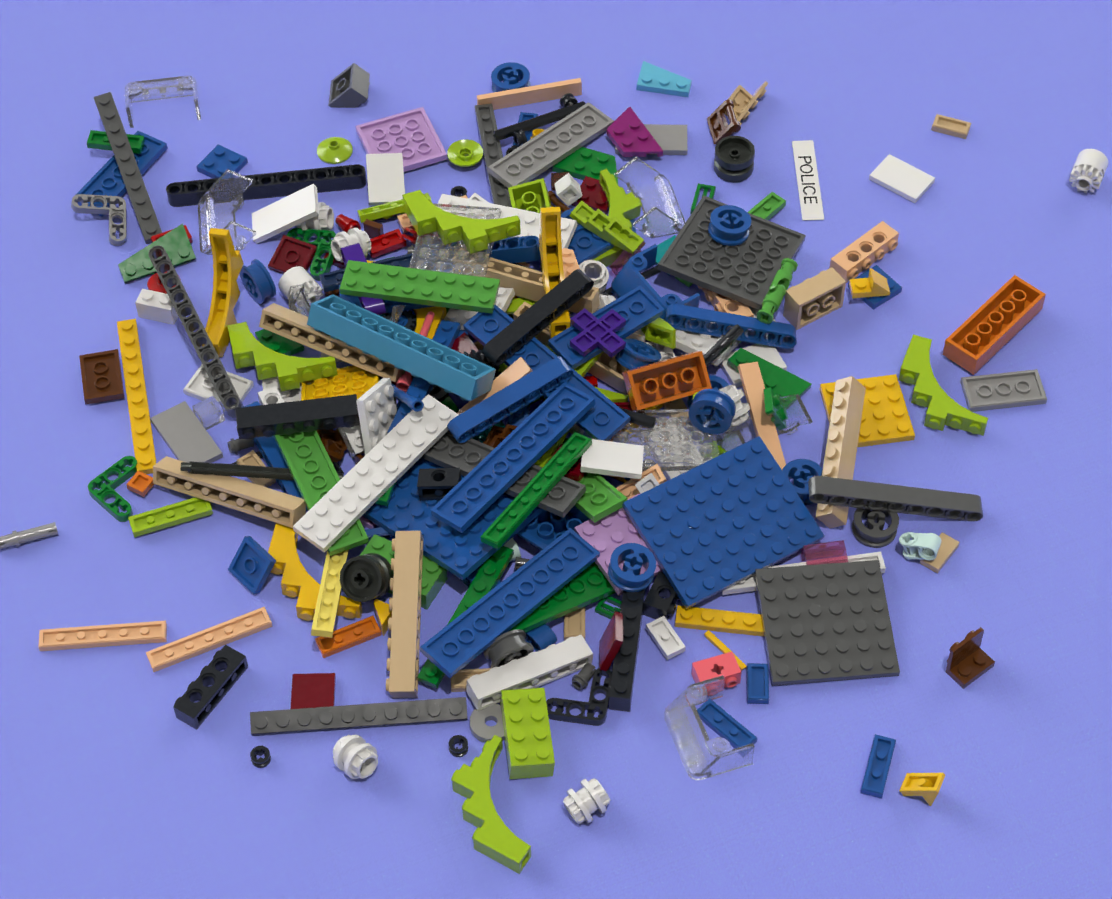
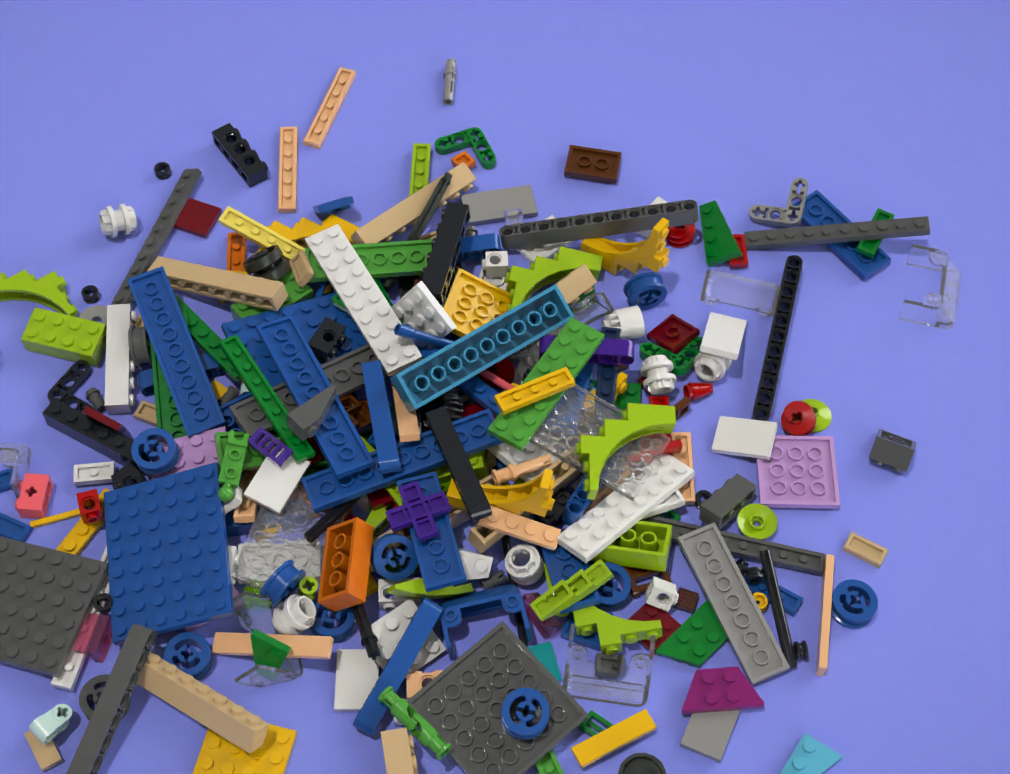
camera: 110 degrees right, 5 degrees up
(136, 395) = (564, 184): yellow plate -> none
(219, 161) = (824, 316): blue plate -> none
(349, 149) = (802, 411): none -> red piece
(358, 542) = (301, 268): none -> tan tile
(384, 210) = (703, 435): lime plate -> none
(441, 279) = (534, 390): none -> yellow plate
(454, 88) = (865, 550): none -> tan tile
(458, 171) = (727, 501): none -> dark grey brick
(515, 297) = (512, 471): none -> light nougat pin
(544, 432) = (308, 417): none -> dark grey slope
(585, 476) = (261, 438): none -> dark purple slope
(619, 488) = (231, 465): none -> bright green plate
(648, 200) = (609, 665): none -> dark grey plate
(704, 618) = (86, 500): none -> red brick
(707, 185) = (613, 738): none -> yellow tile
(778, 379) = (318, 686): green wing -> none
(793, 554) = (99, 608): none -> black bush

